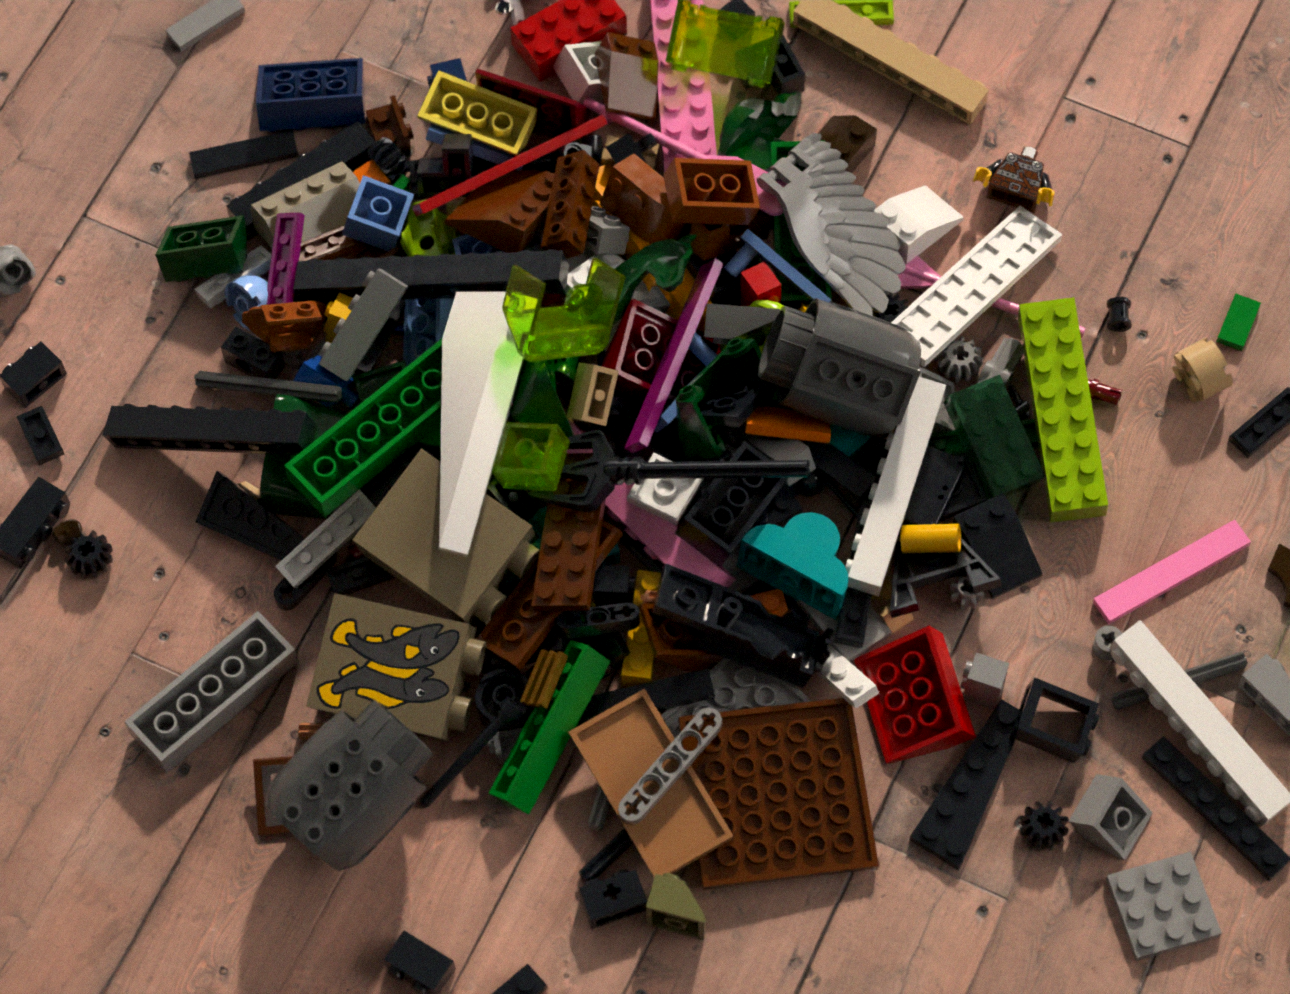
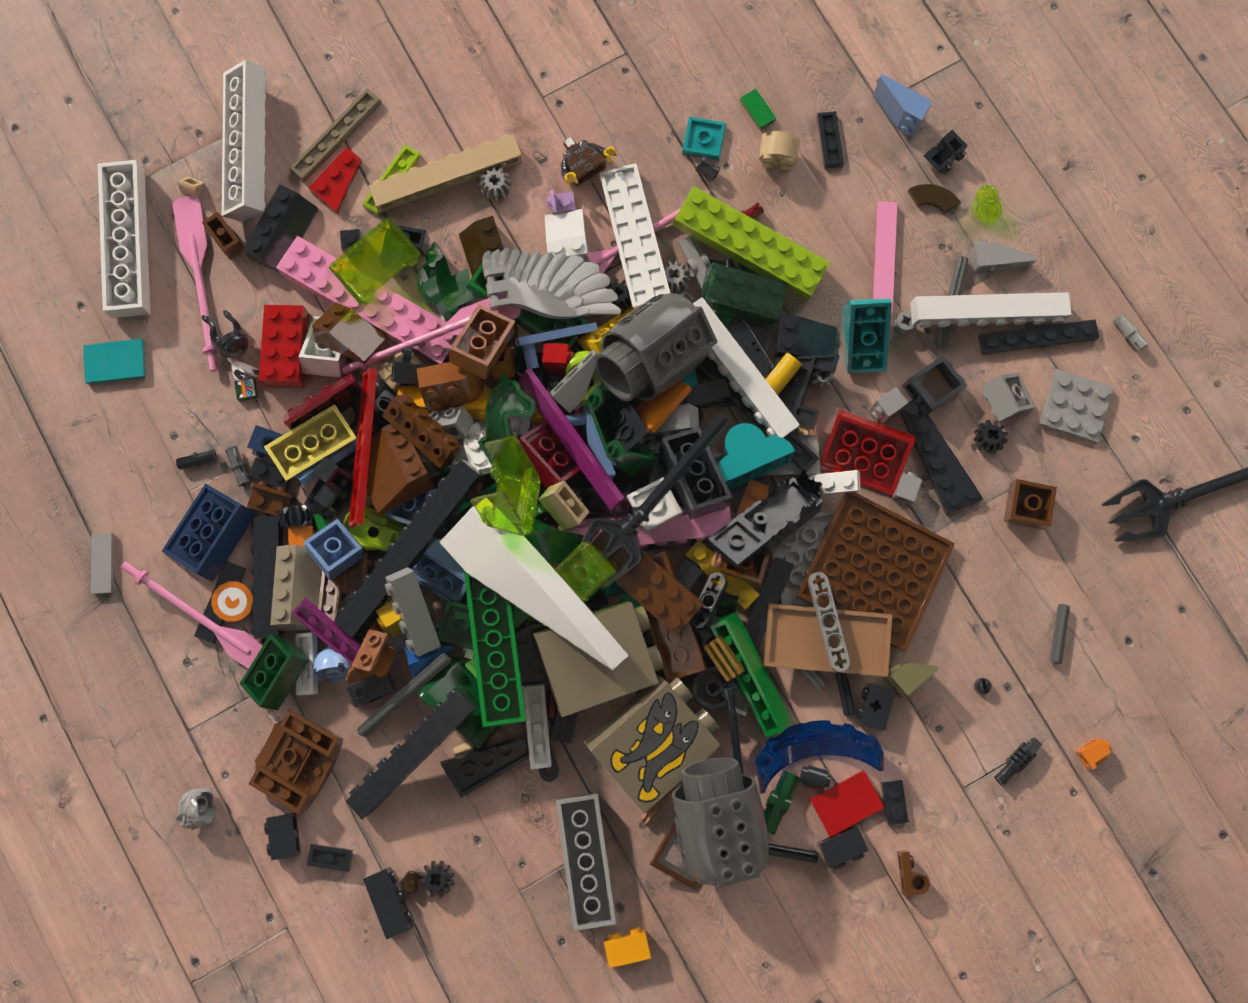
camera: 55 degrees left, 15 degrees up
(121, 335) = (296, 762): none -> reddish brown slope
(142, 800) = (627, 947): none -> light orange brick
(210, 195) = (236, 643): none -> bright pink piece
(251, 162) = (232, 601): none -> orange tile
(371, 909) = (793, 853): none -> black axle
(382, 32) = (196, 459): none -> black axle
(403, 74) = (237, 466): none -> dark grey pin
(413, 101) = (268, 473): none -> black plate
(423, 860) = (779, 800): none -> dark green piece
(476, 940) = (846, 803): none -> red tile
(480, 882) = (814, 777): none -> black brick
(494, 28) = (246, 389): none -> tile
(513, 846) = (812, 740): none -> clear blue windscreen
(905, 769) = (907, 488): none -> light grey brick
(919, 112) = (488, 180): none -> light grey gear
(953, 191) = (561, 202): none -> lavender bracket
(992, 919) = (1030, 504): none -> reddish brown brick
(1053, 599) = (866, 334): none -> teal brick
(1155, 288) = (704, 138): none -> teal tile

